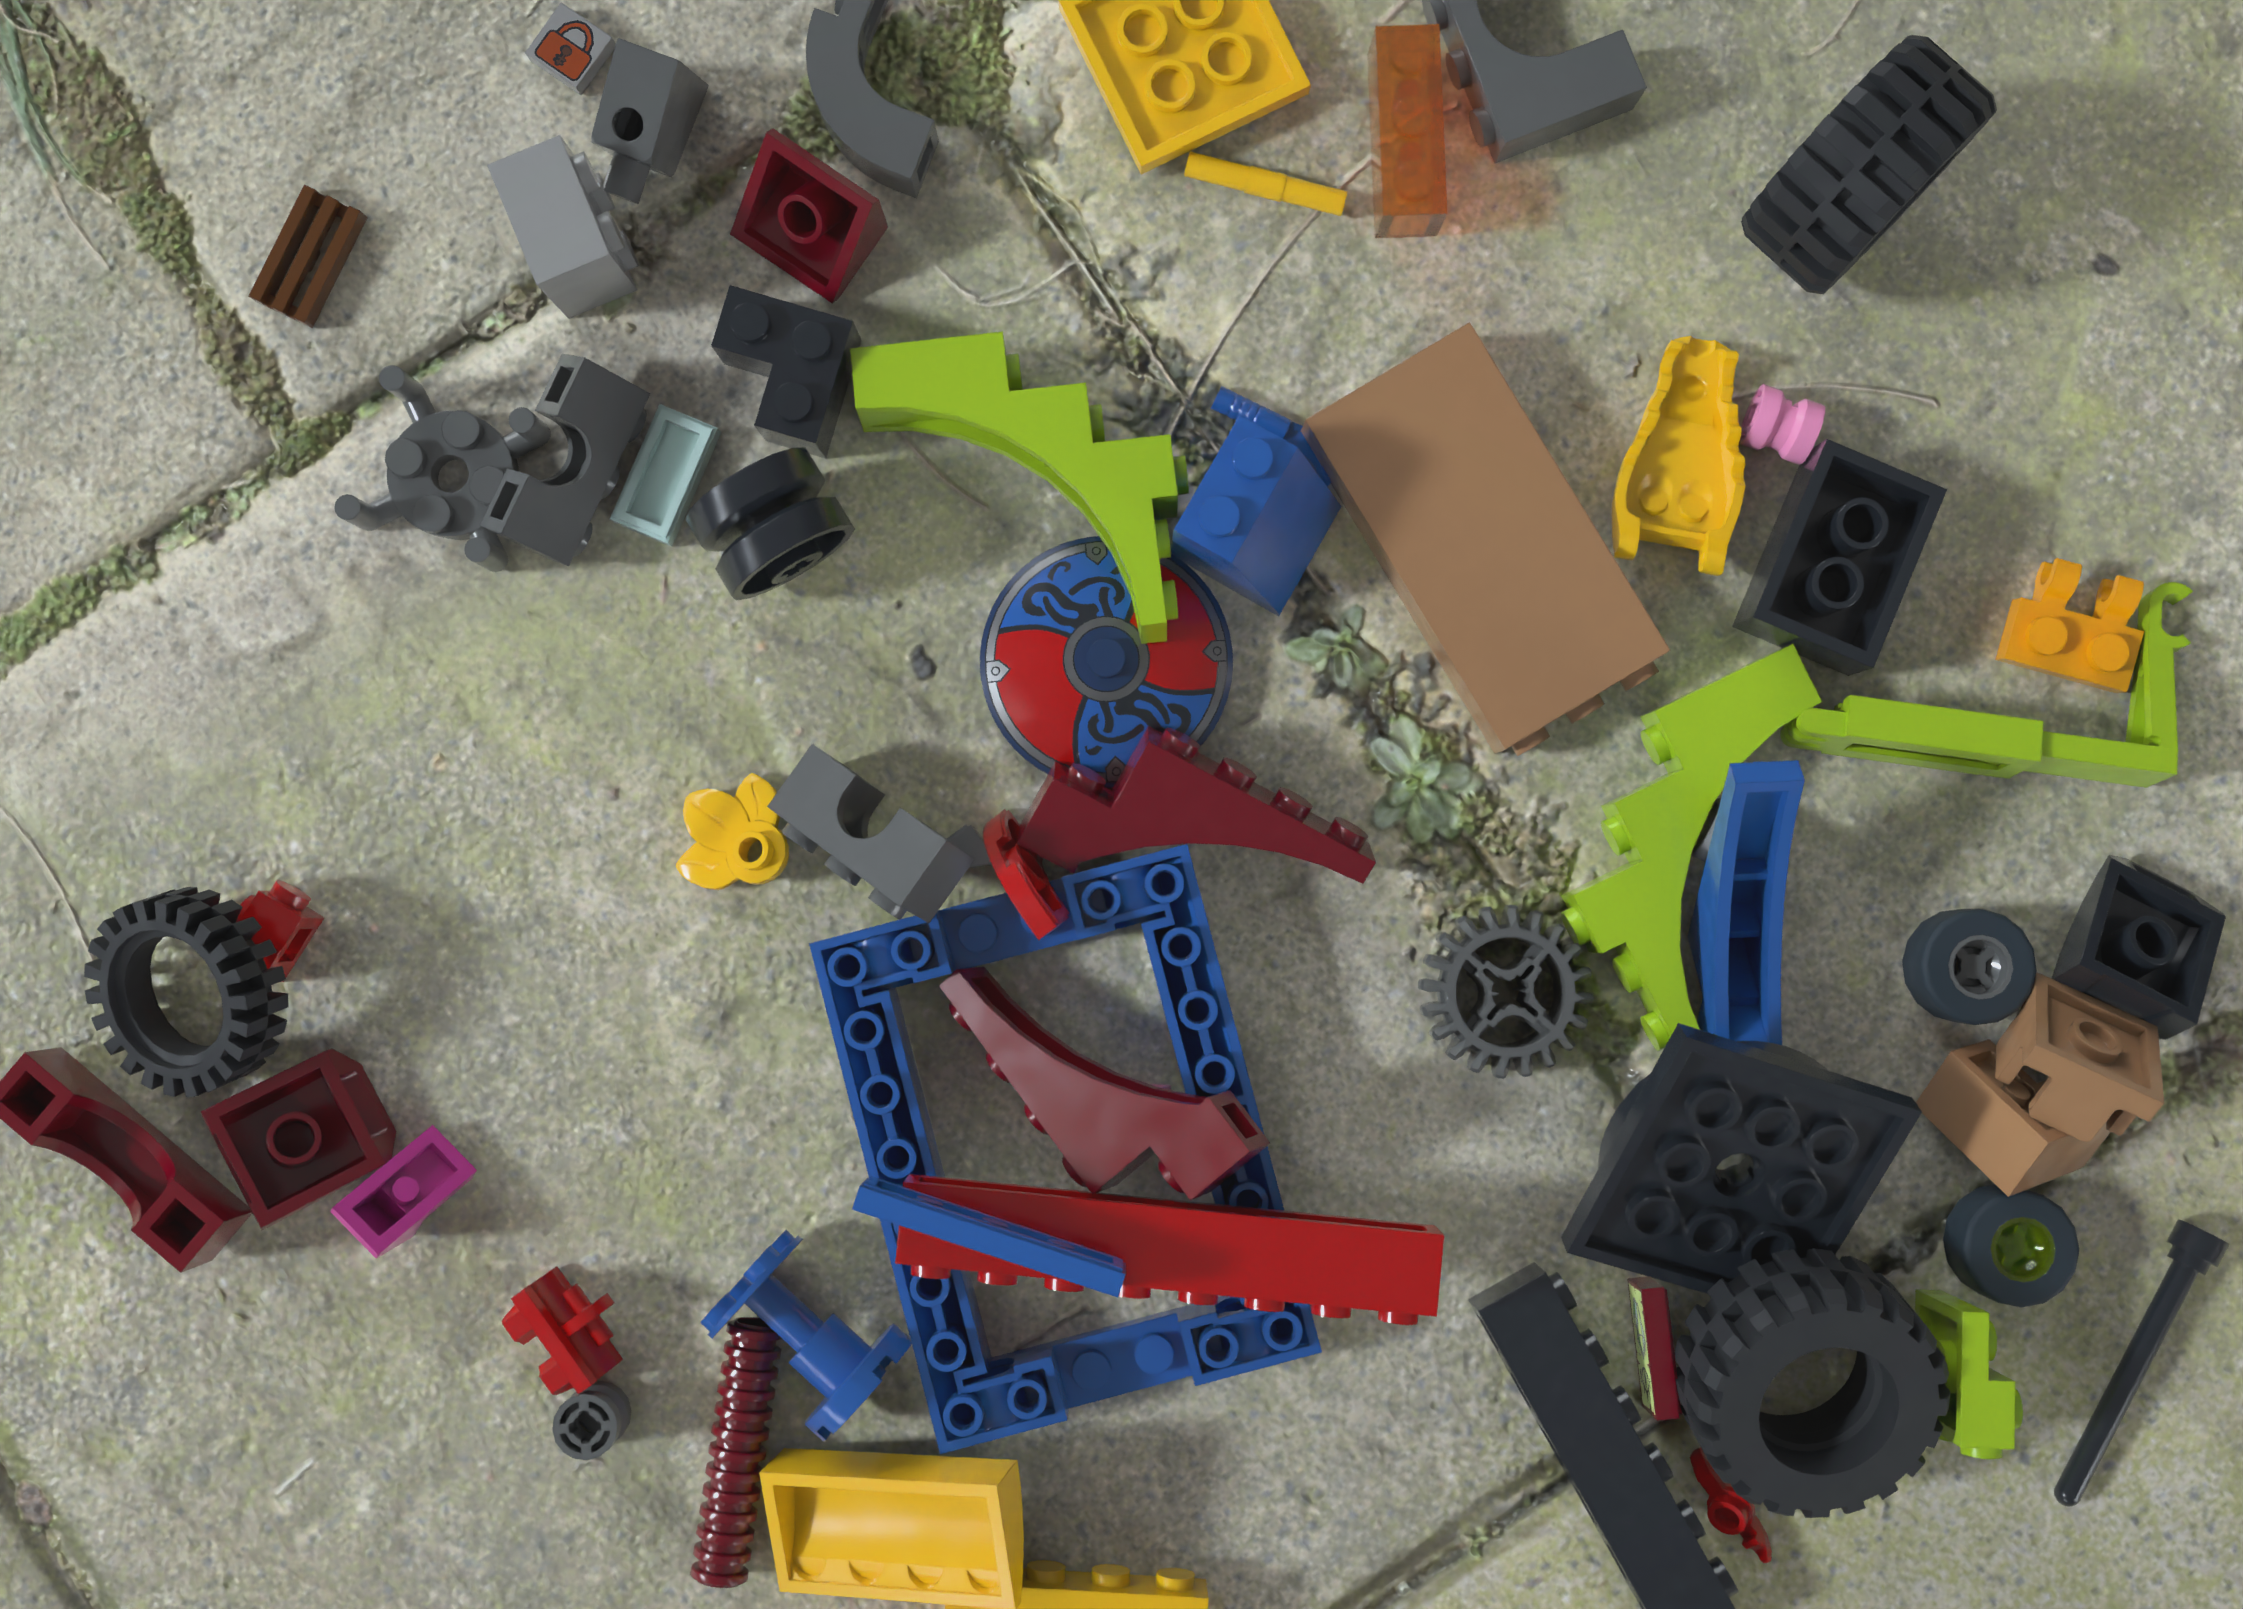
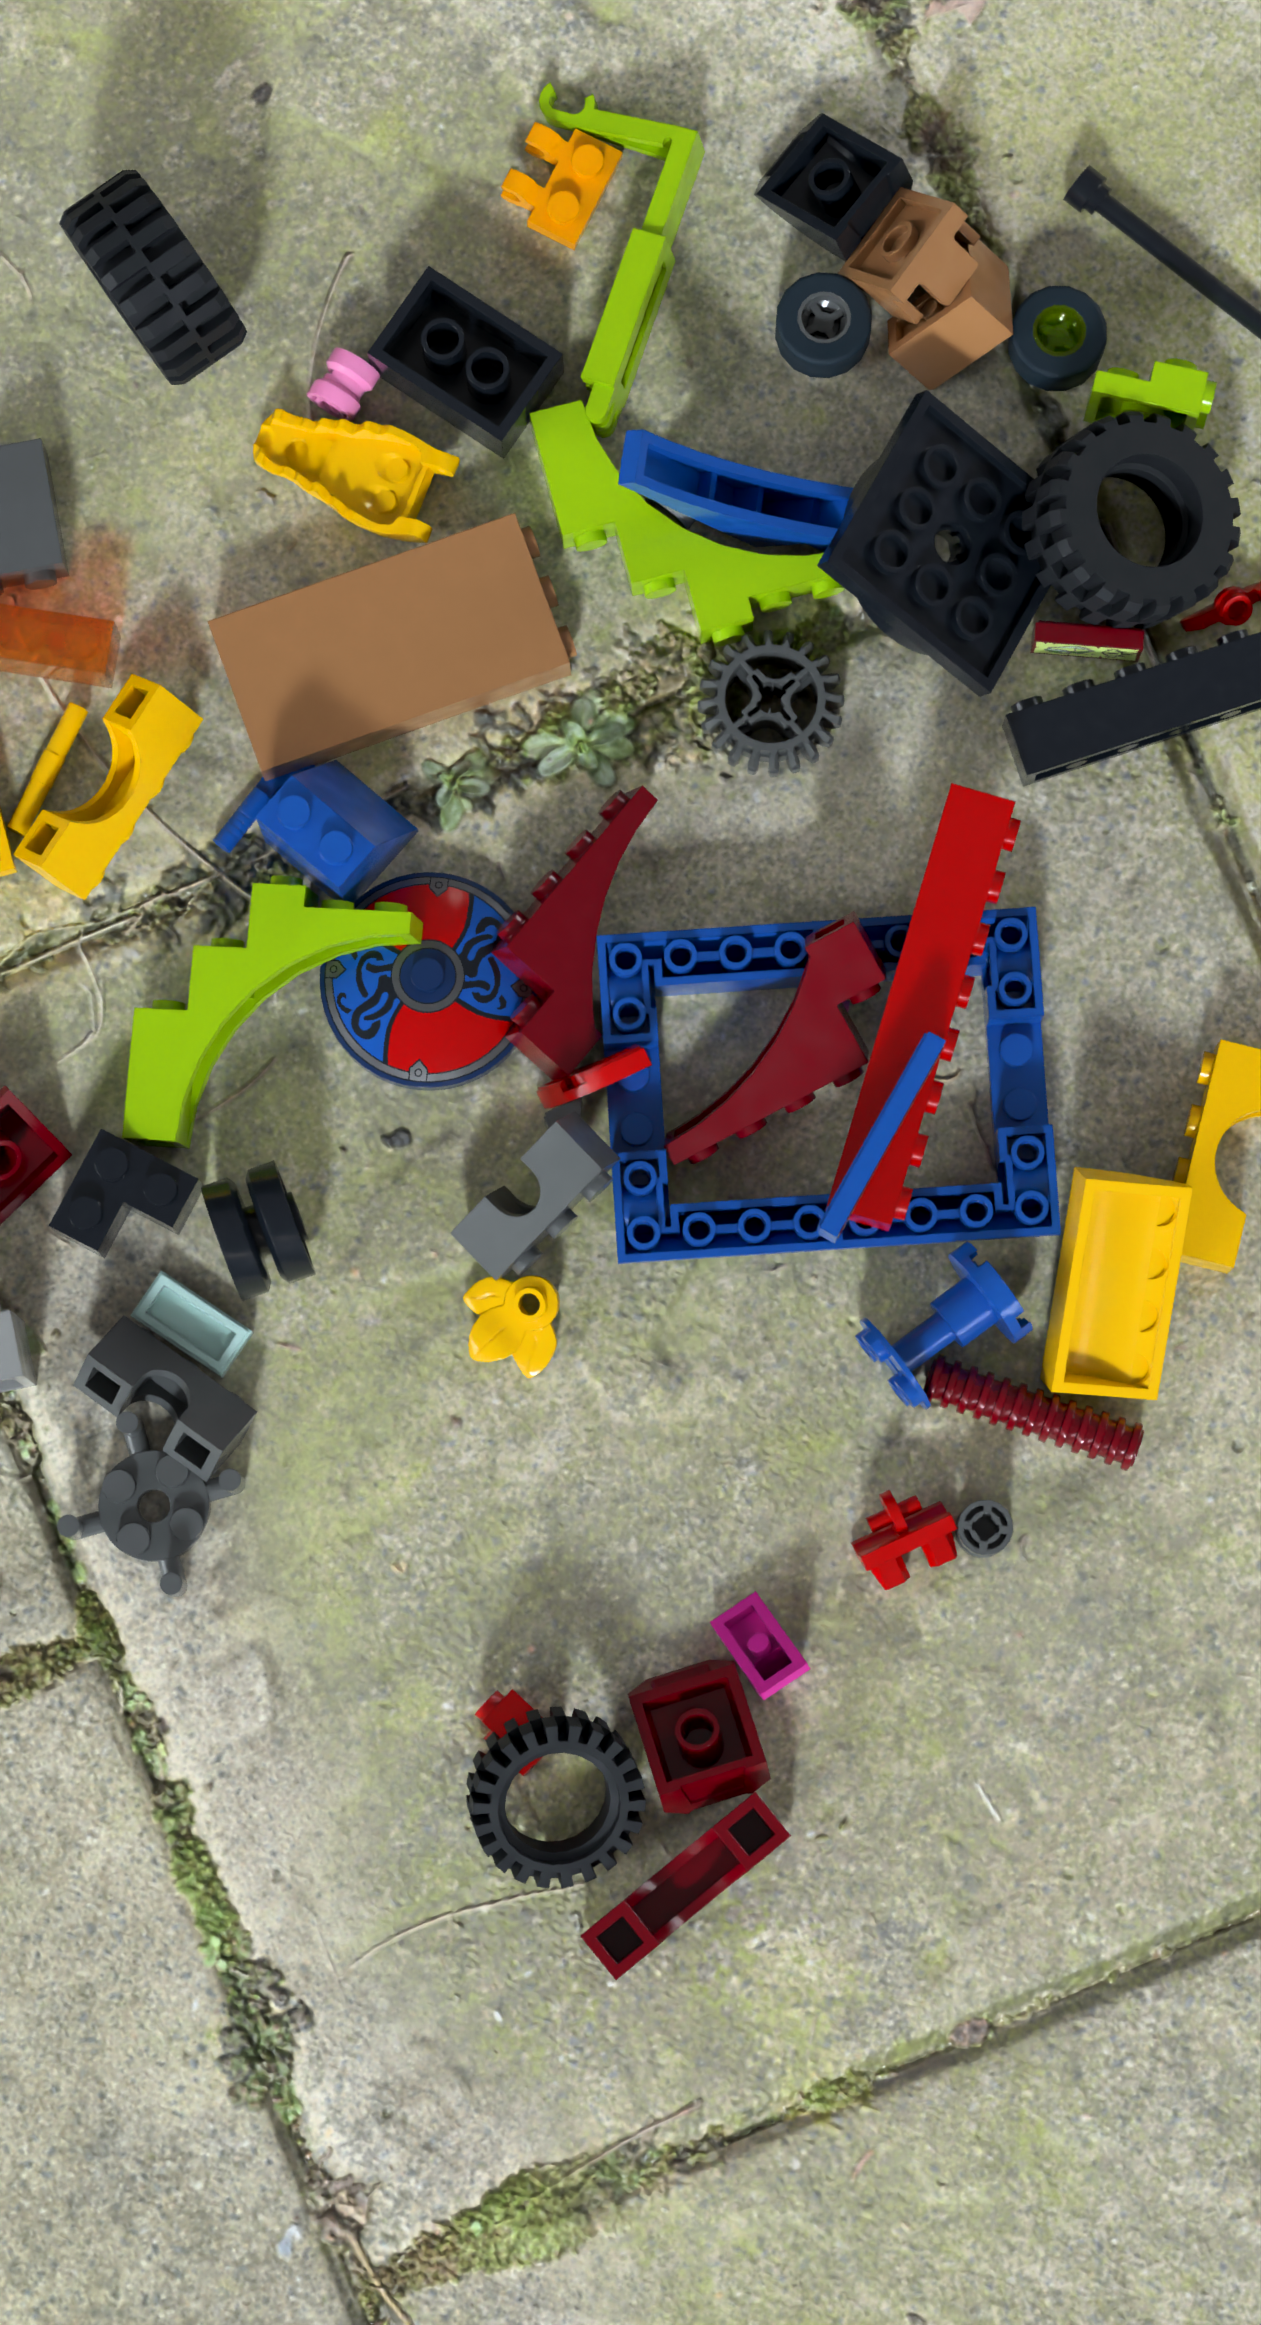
camera: 75 degrees left, 5 degrees down
(1183, 232) = (147, 737): none -> yellow arch

